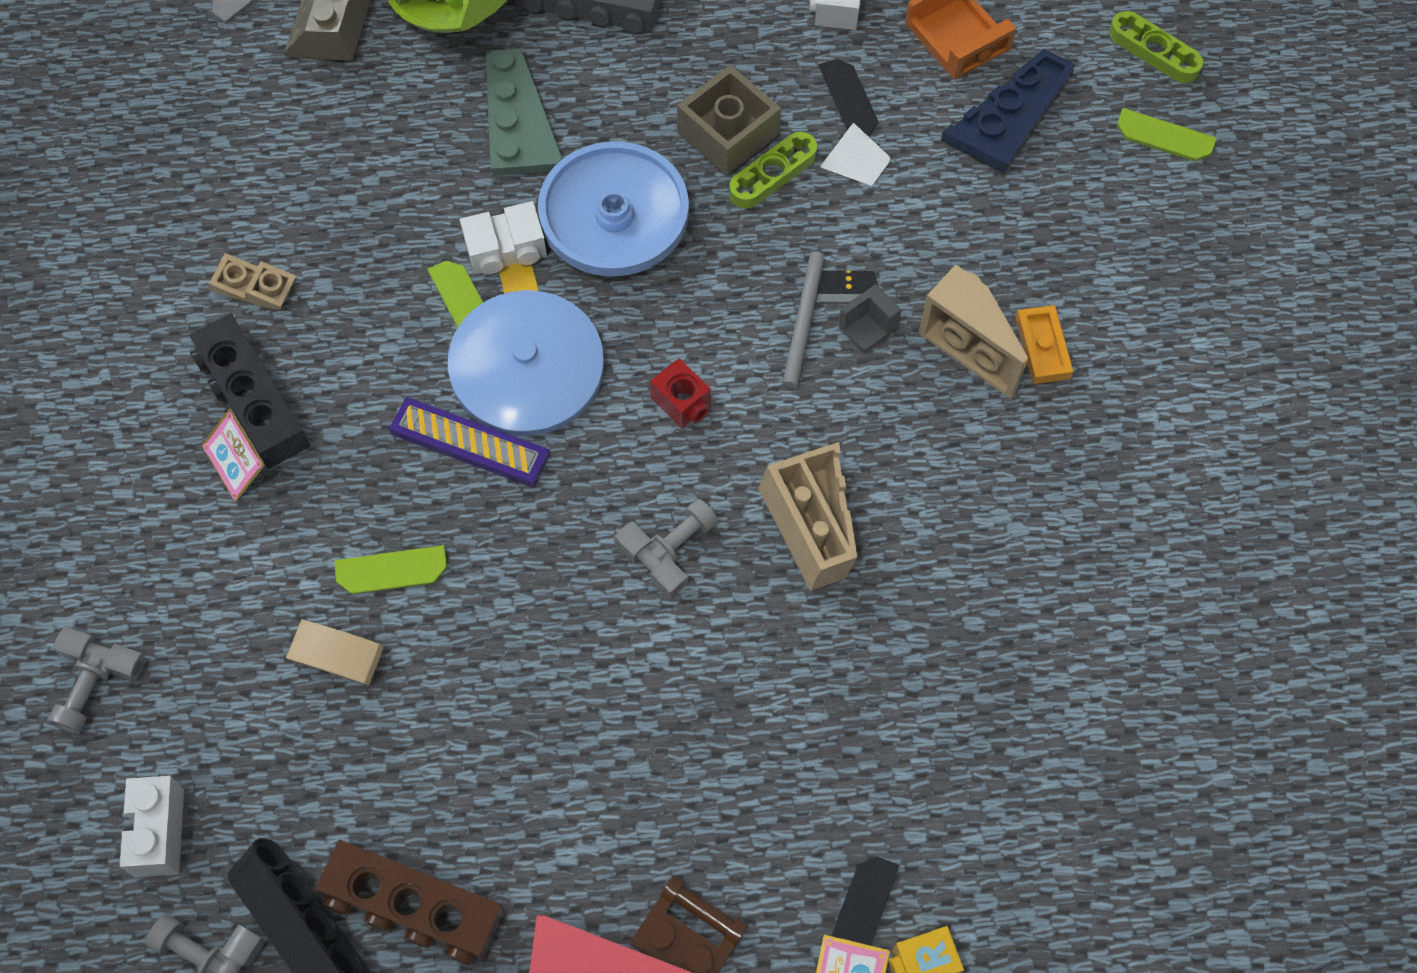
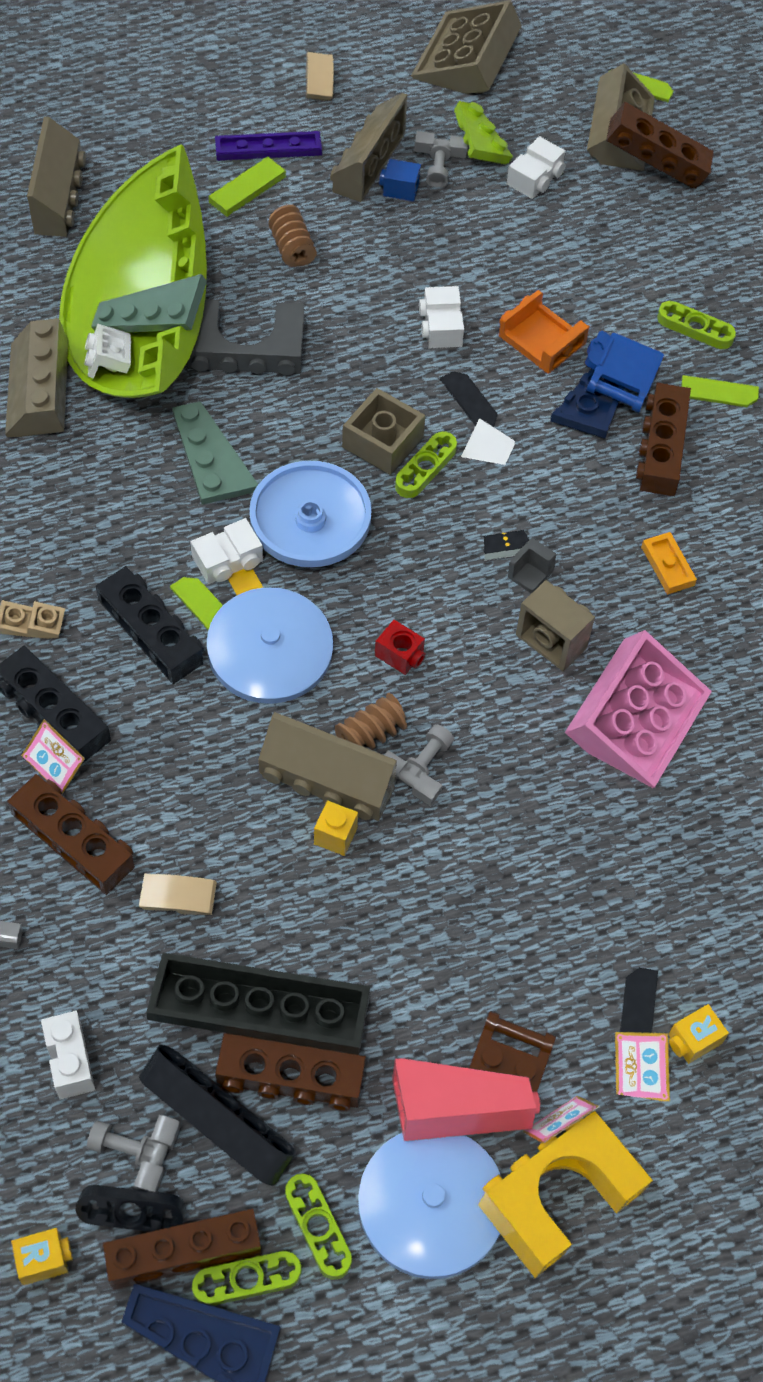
camera: 15 degrees left, 5 degrees down
(191, 509) = (103, 870): none -> reddish brown brick
(391, 570) = (203, 824): lime piece -> none
(392, 811) = (259, 1003): none -> pearl dark grey arch
(407, 362) = (173, 661): none -> black brick
(469, 442) = (231, 711): tile -> none
(543, 606) = (335, 828): none -> yellow brick
(550, 530) = (327, 767): none -> dark tan slope
(621, 486) = (373, 722): none -> medium nougat piece
(803, 320) = (479, 578): light grey bar -> none
(812, 513) = (526, 720): tan wedge -> none
(876, 399) = (555, 625): none -> dark tan brick
(959, 526) = (639, 709): none -> bright pink slope
(972, 329) = (616, 560): tan slope -> none
(1047, 81) = (622, 363): none -> blue piece
(1085, 165) = (664, 439): none -> reddish brown brick

